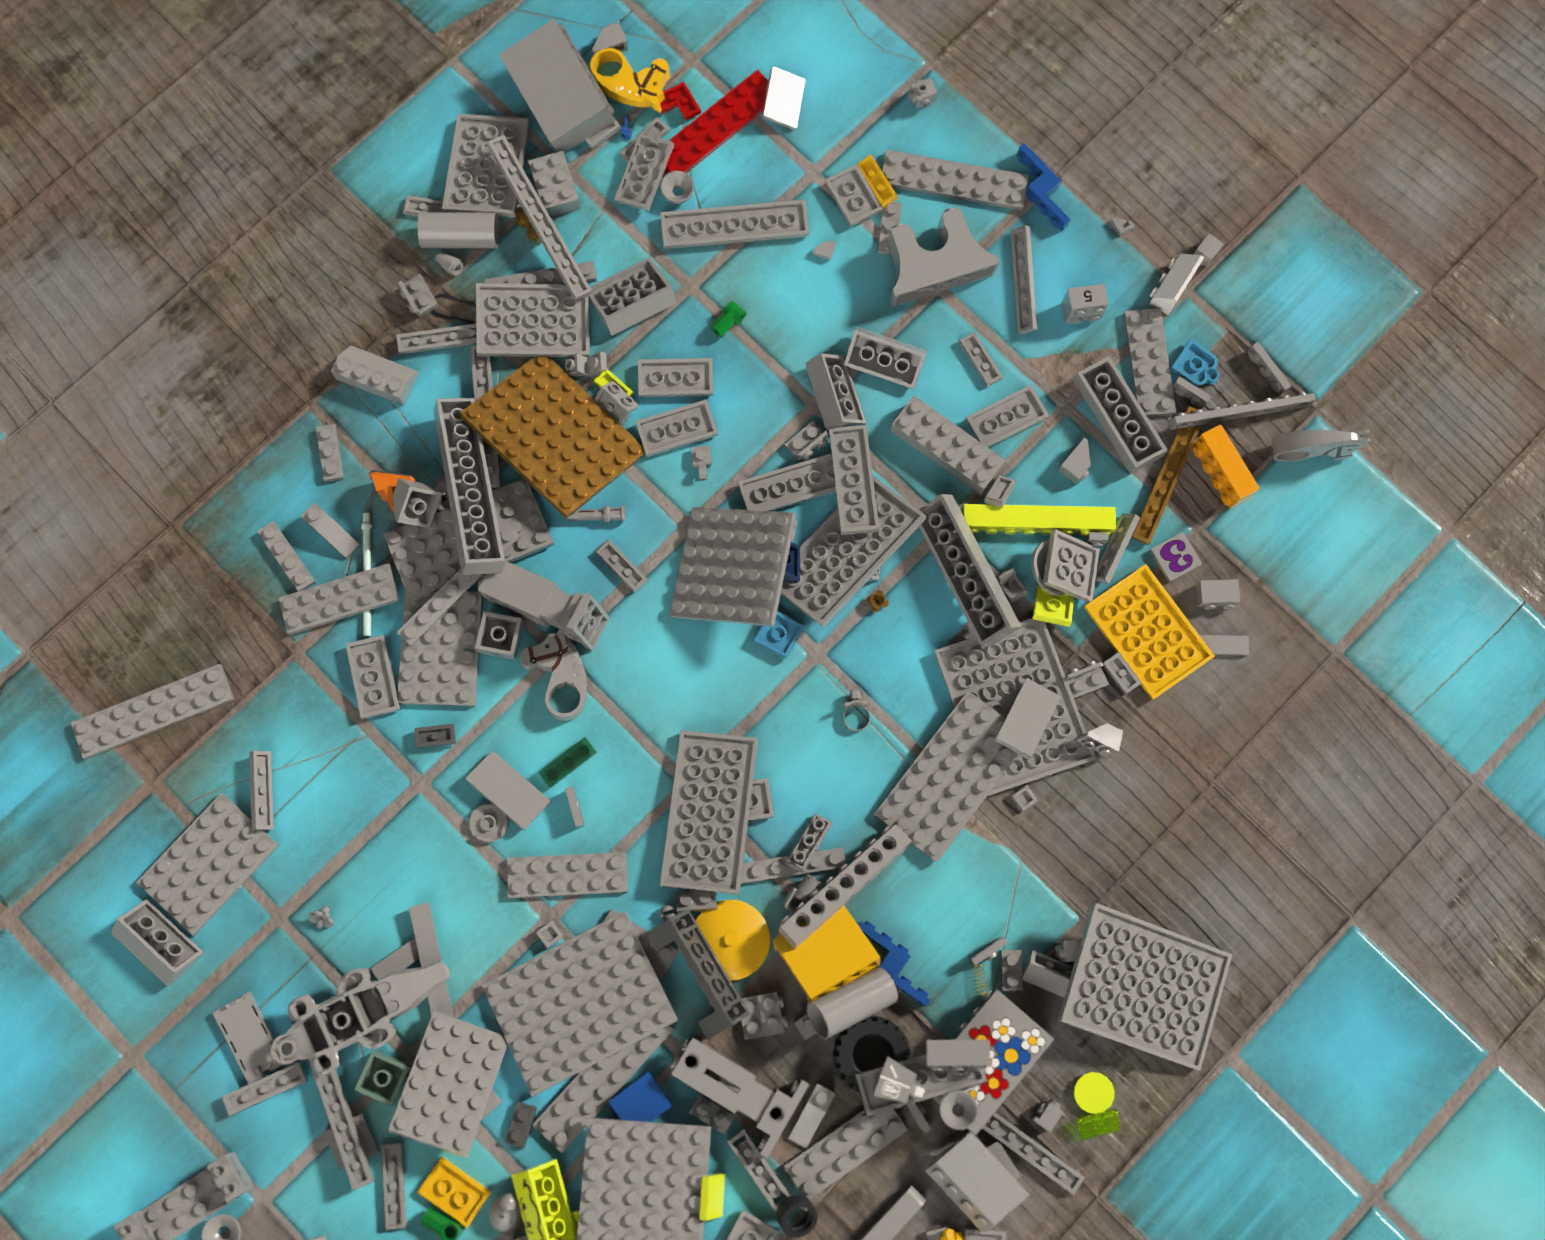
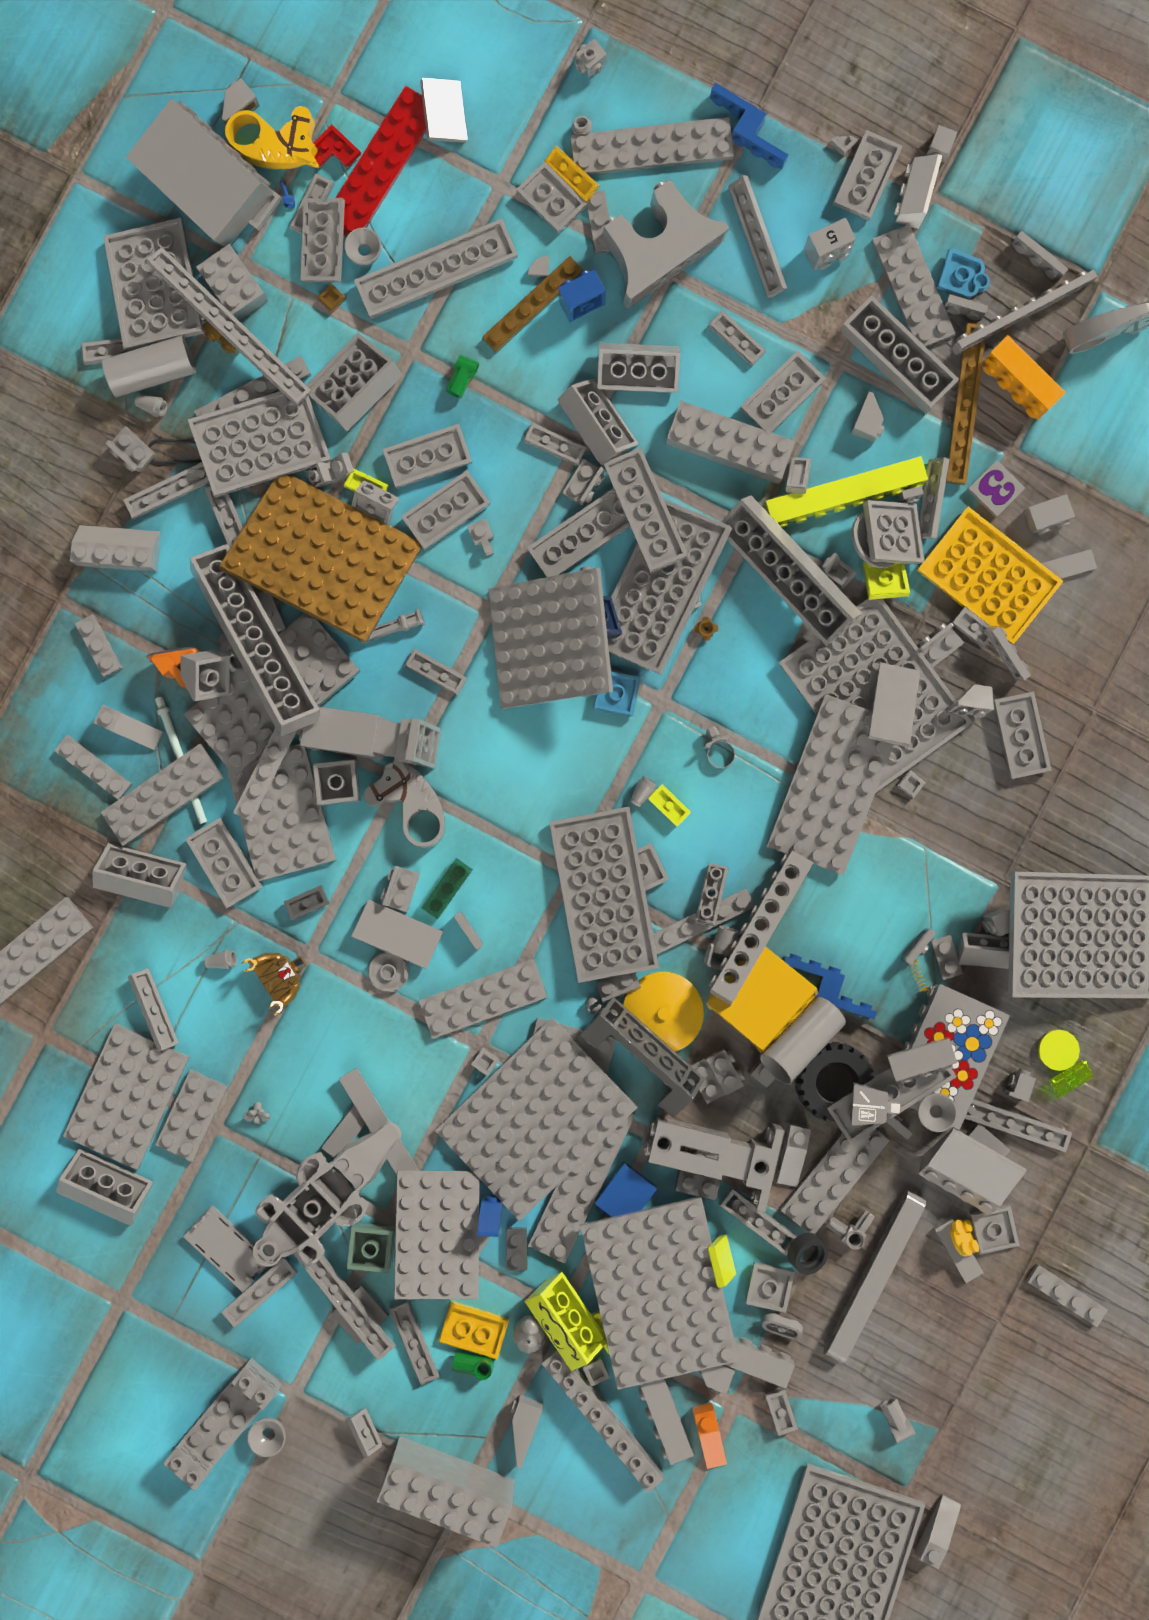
camera: 15 degrees left, 10 degrees up
(261, 900) = (191, 1115): none -> light grey plate
(292, 664) = (139, 875): none -> light grey slope
(340, 764) = (222, 960): none -> light grey cone
(386, 795) = (278, 976): none -> pearl gold torso
(505, 1082) = (490, 1217): none -> blue slope
(524, 749) = (400, 888): none -> light grey bracket
(636, 222) = (331, 298): none -> pearl gold tile
(774, 729) = (643, 791): none -> light grey cone
(791, 401) = (554, 444): none -> light grey tile
(795, 749) = (669, 805): none -> neon yellow plate
(809, 278) = (531, 305): none -> pearl gold plate
(839, 1206) = (846, 1231): none -> light grey axle
(854, 282) = (581, 295): none -> blue brick
(898, 145) = (582, 126): none -> light grey plate
(1135, 257) = (867, 175): none -> light grey plate
(1139, 784) = (1022, 735): none -> light grey plate
(1146, 704) = (1007, 652): none -> light grey plate

